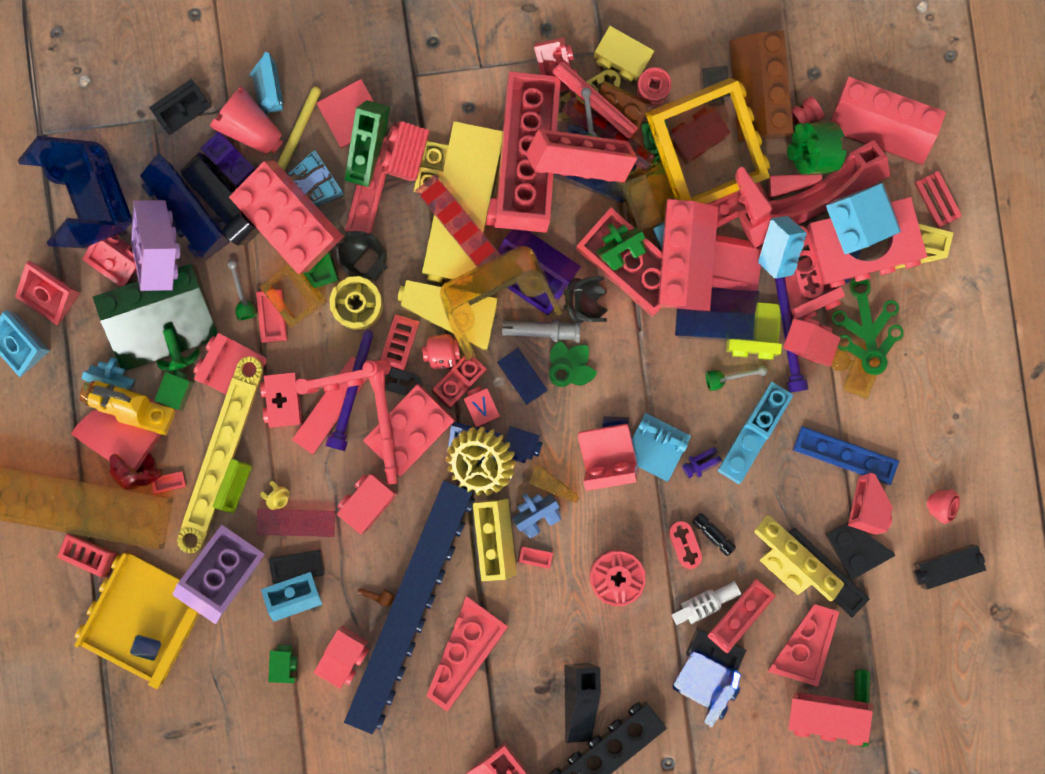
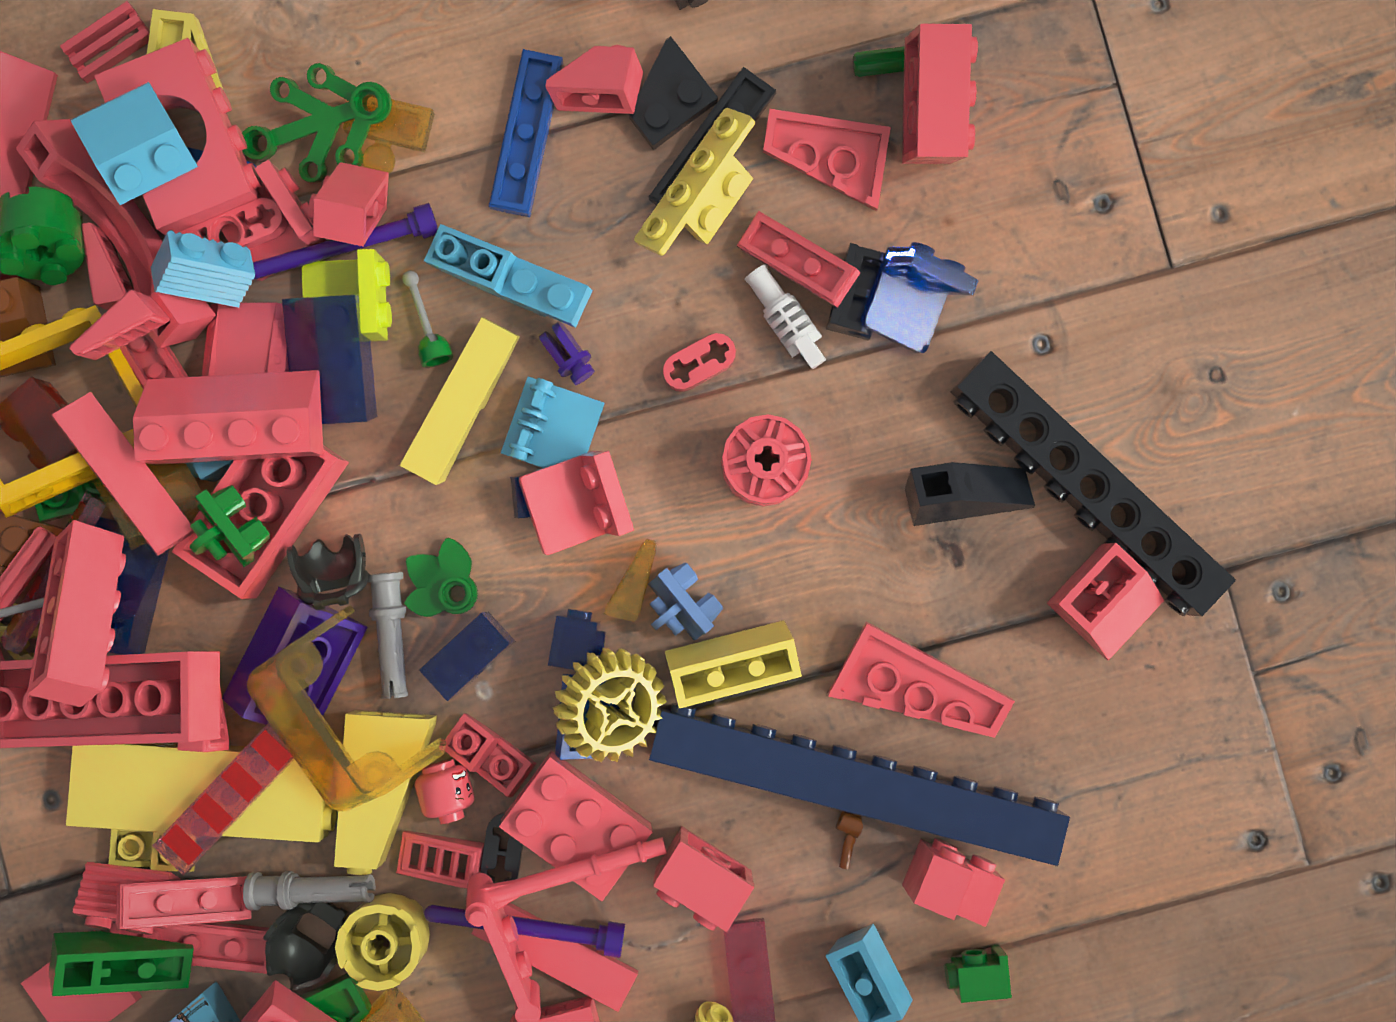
camera: 100 degrees left, 0 degrees up
(296, 564) = (816, 975): black tile -> none
(394, 250) = (292, 889): none -> light grey pin
(397, 187) = (180, 903): none -> coral tile
(481, 406) = (524, 714): coral brick -> none
(535, 557) = (751, 595): coral piece -> none
(661, 187) = (124, 478): none -> coral tile
(680, 392) = (460, 402): none -> light yellow slope
(713, 534) = (676, 320): black axle -> none

